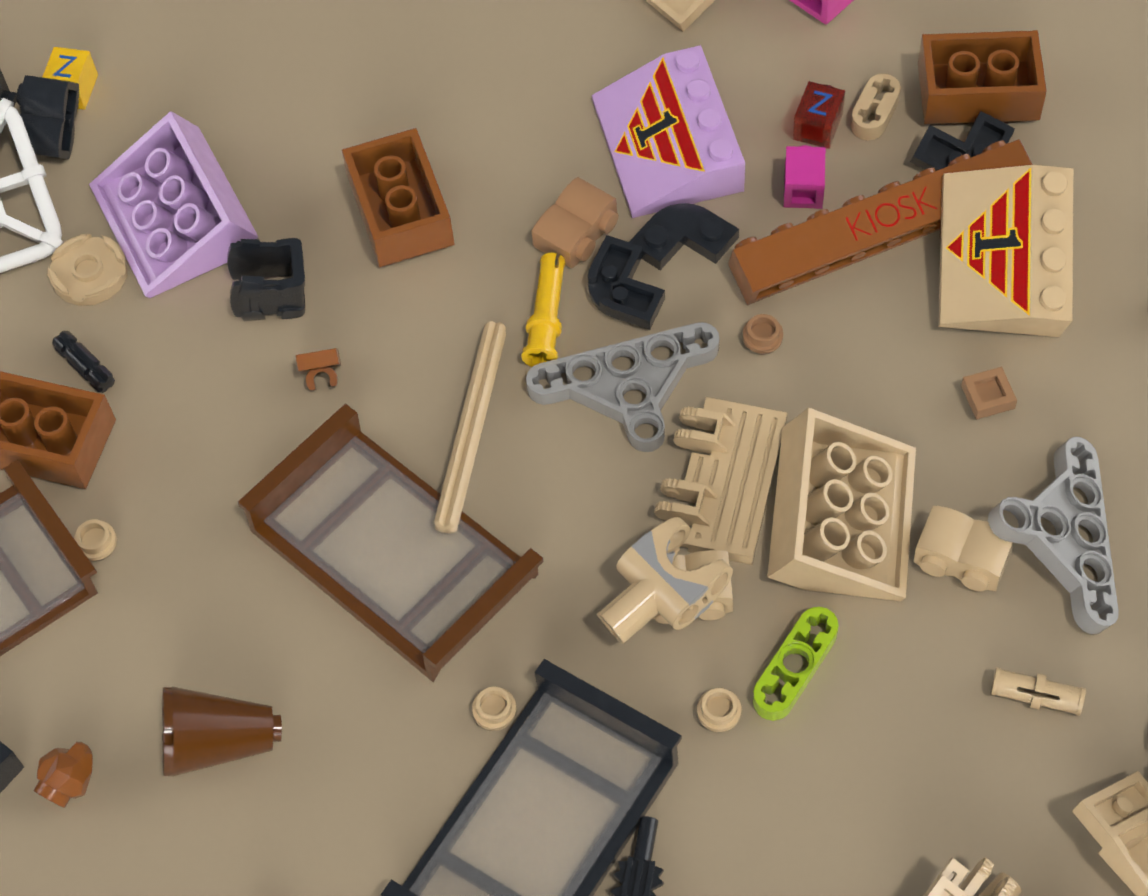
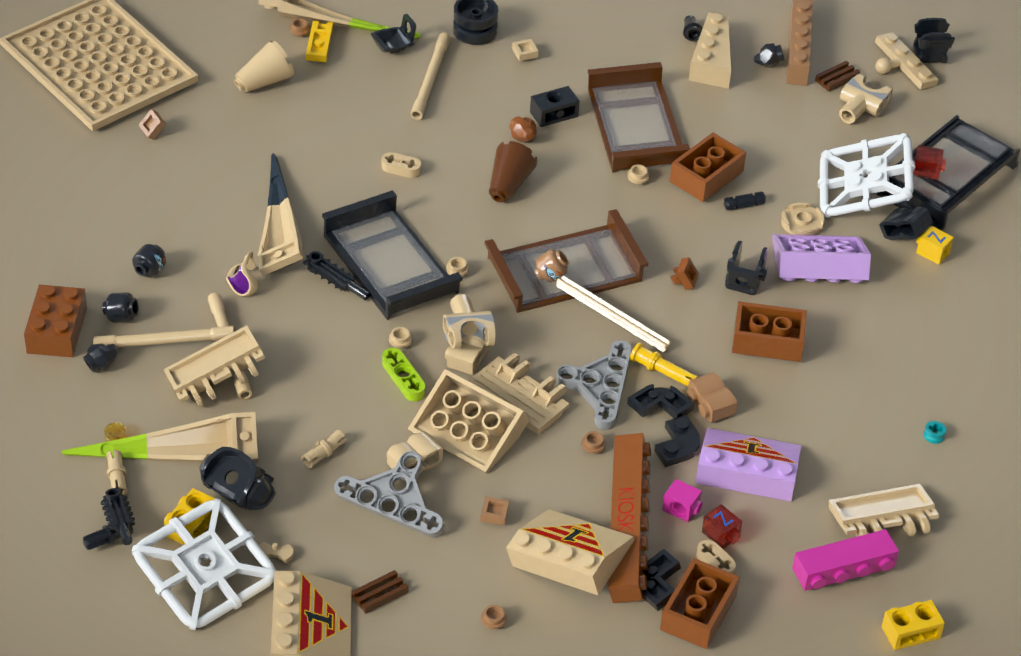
camera: 110 degrees right, 15 degrees down
(432, 539) = (551, 265): none -> medium nougat head

